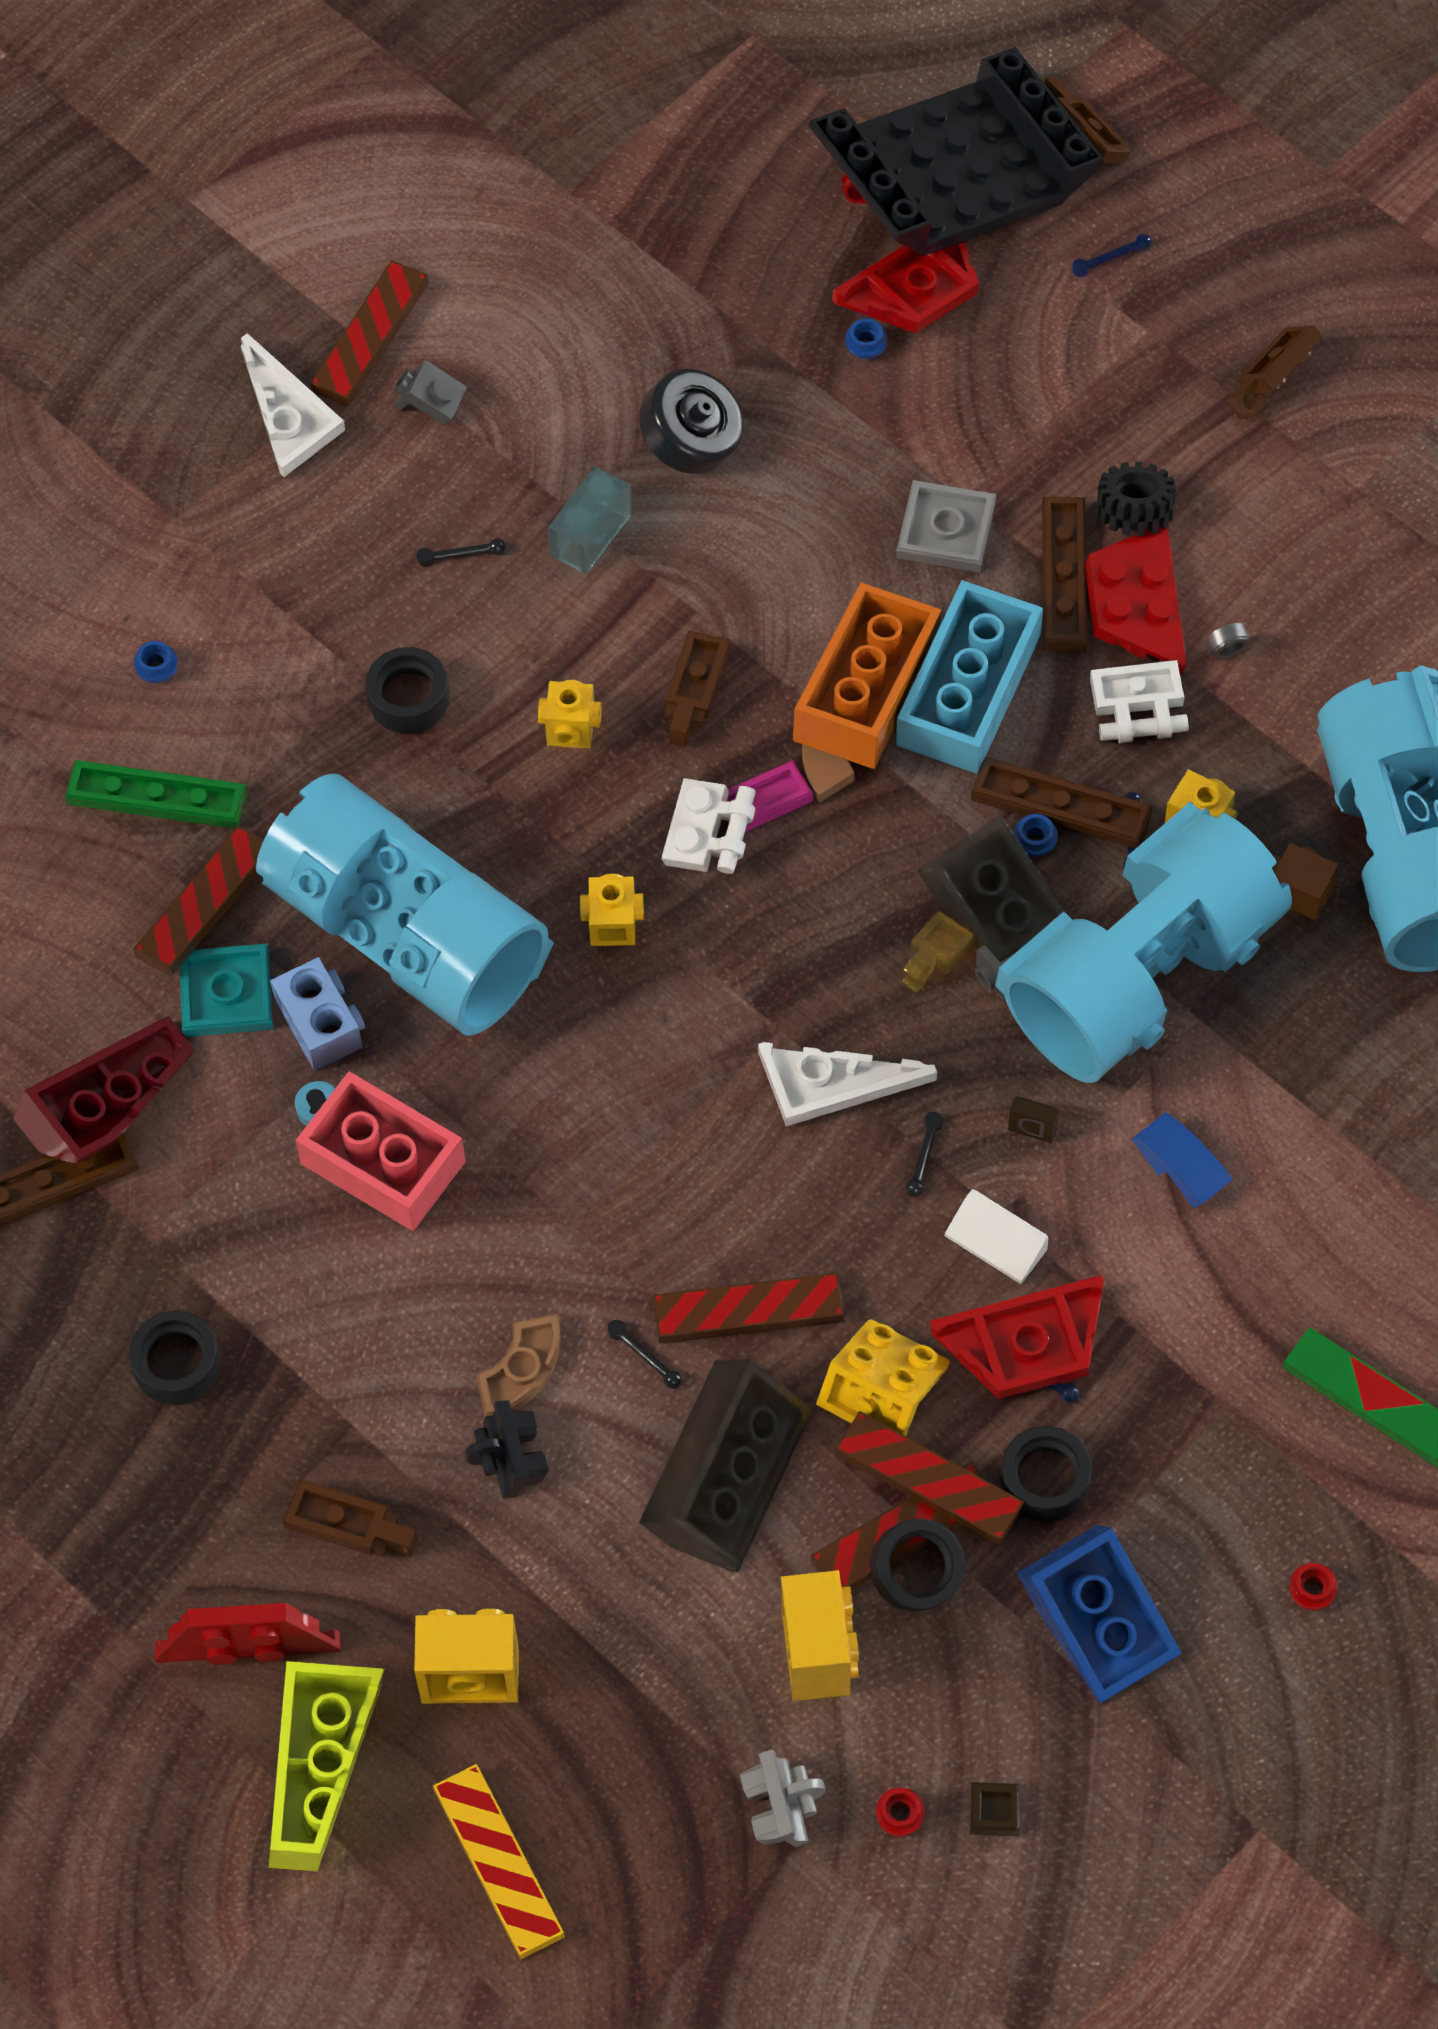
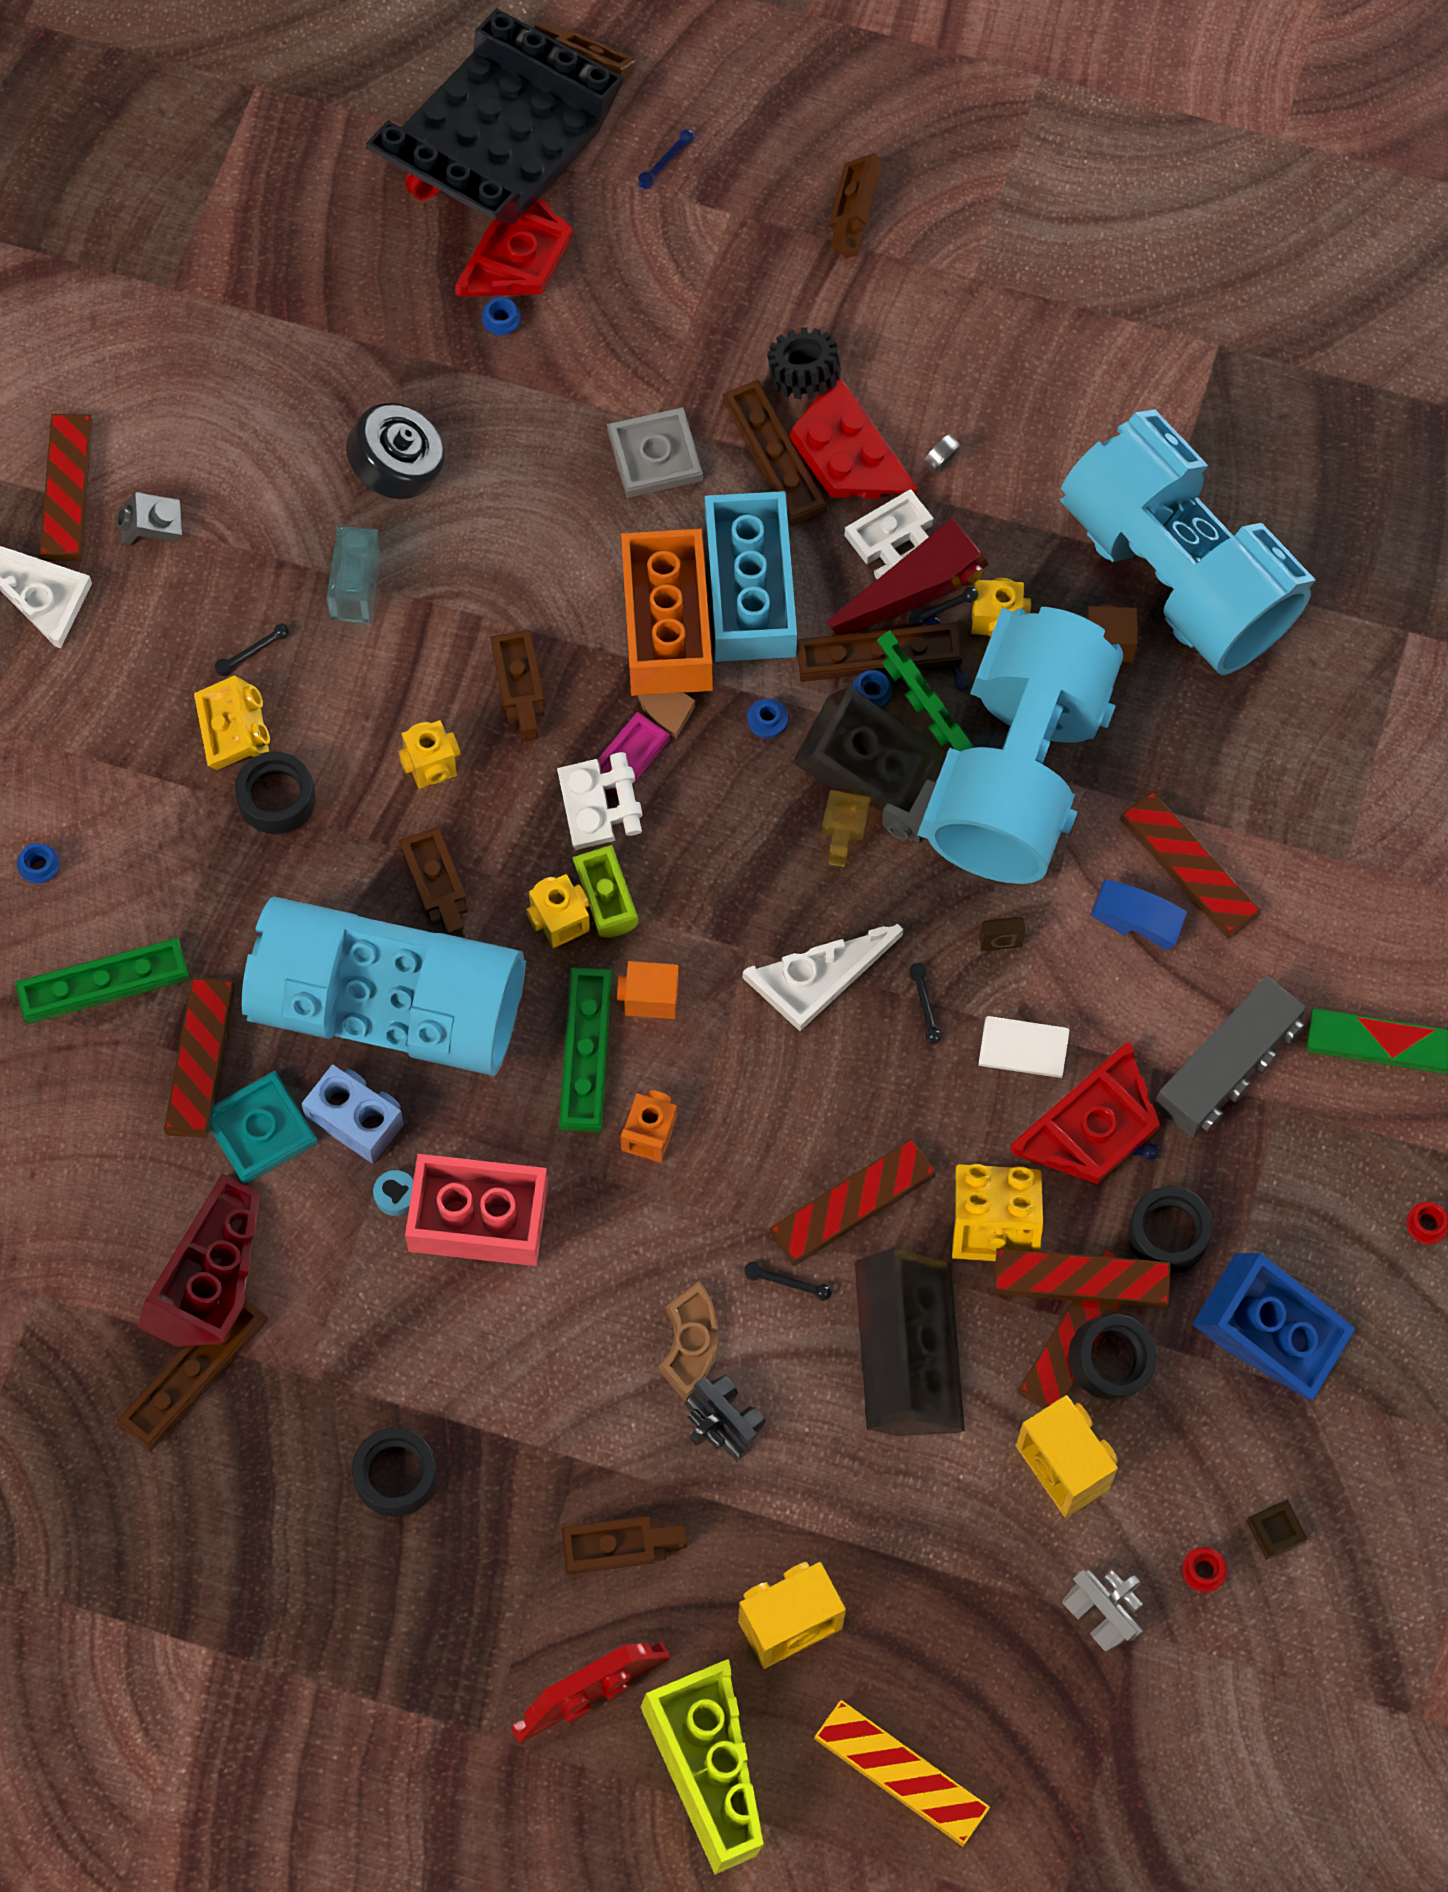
camera: 30 degrees left, 5 degrees up
(403, 608) = (231, 722): none -> yellow bracket
(513, 834) = (436, 880): none -> reddish brown hinge
(570, 1053) = (585, 1050): none -> green tile
(587, 1161) = (645, 1138): none -> orange brick
(660, 1022) = (649, 989): none -> orange brick
(667, 914) = (606, 892): none -> lime brick
(916, 830) = (764, 728): none -> blue plate
(1075, 850) = (920, 694): none -> green wing
(1142, 742) = (926, 573): none -> dark red wedge
(1172, 781) = (918, 617): none -> black hinge
(1198, 1337) = (1230, 1057): none -> dark grey brick
(1263, 1137) = (1190, 864): none -> reddish brown tile

